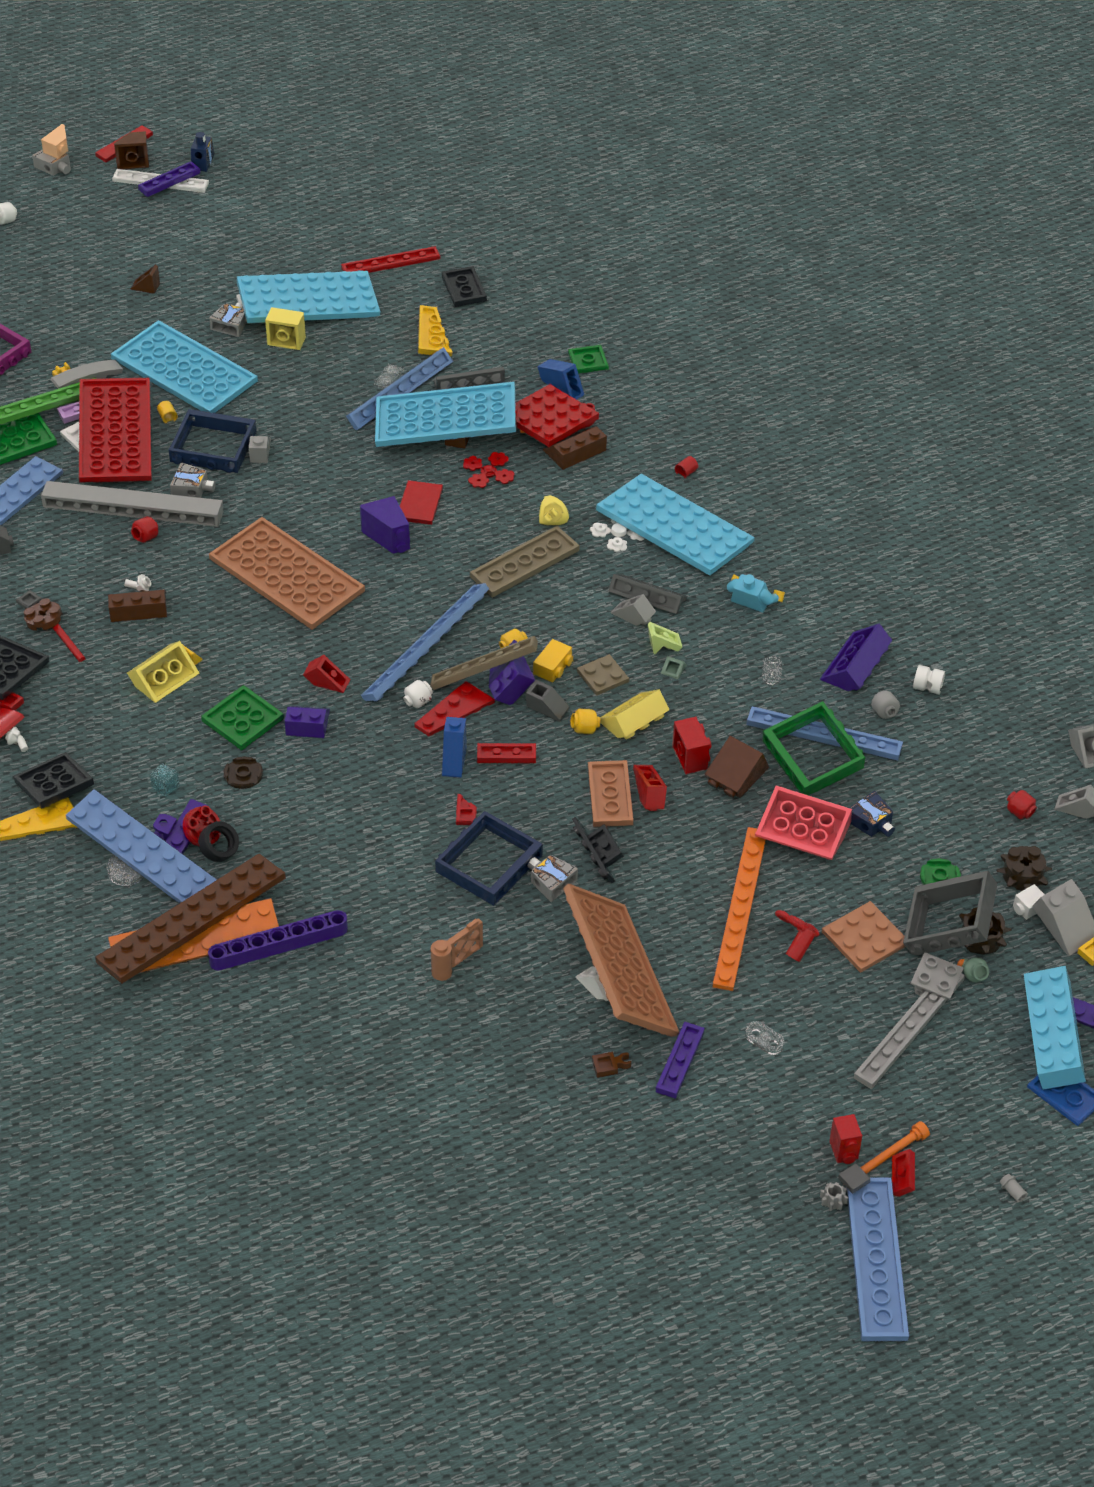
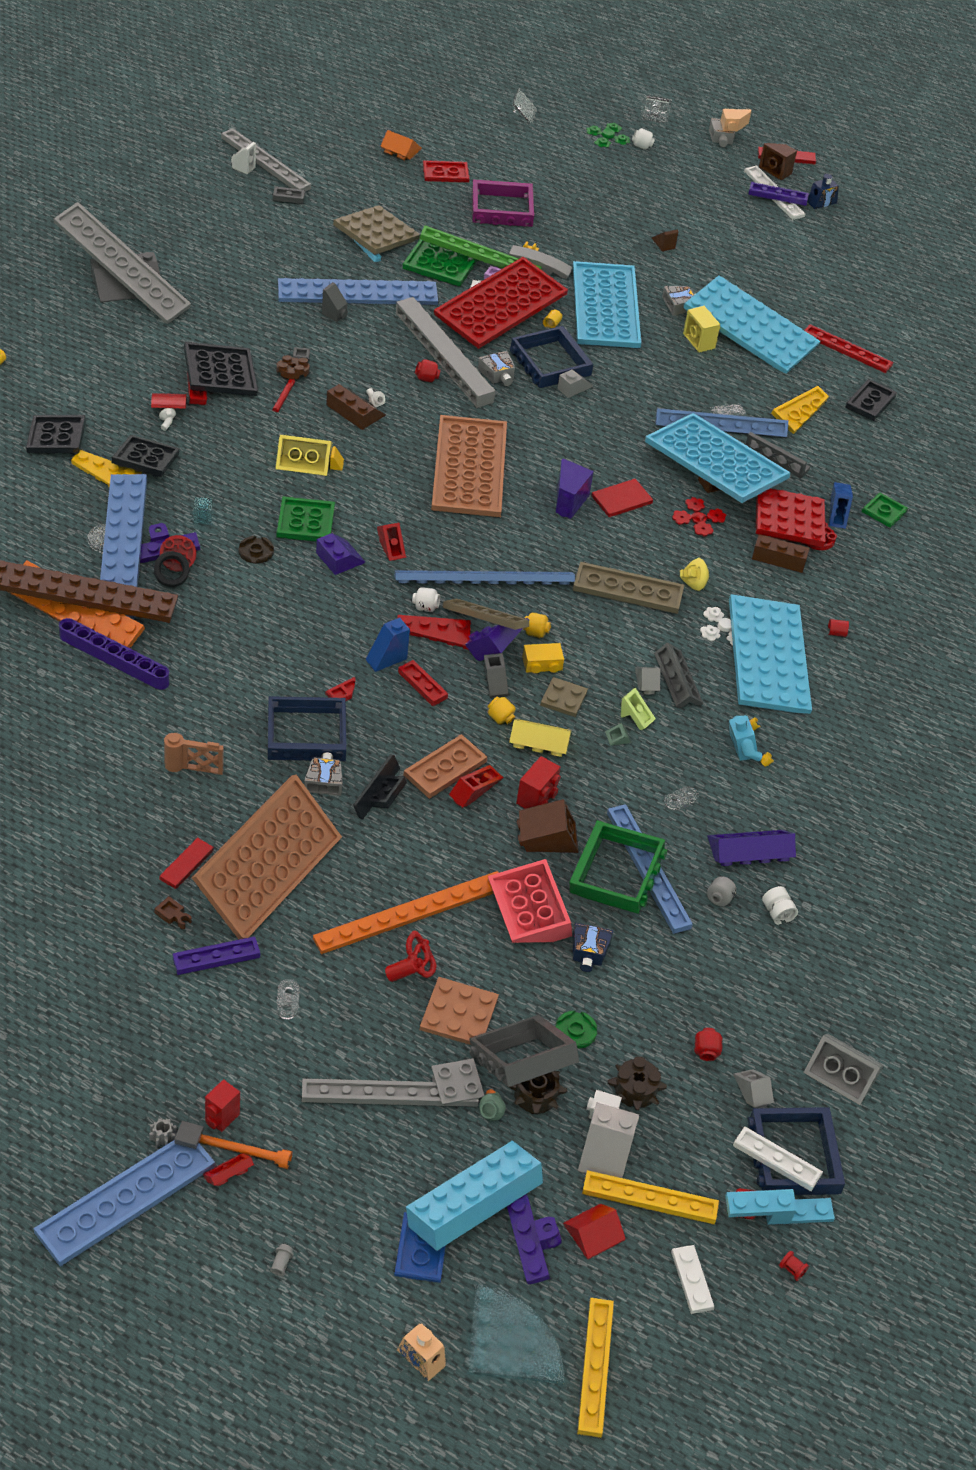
camera: 45 degrees right, 0 degrees up
(561, 1025) = (186, 863): none -> red tile

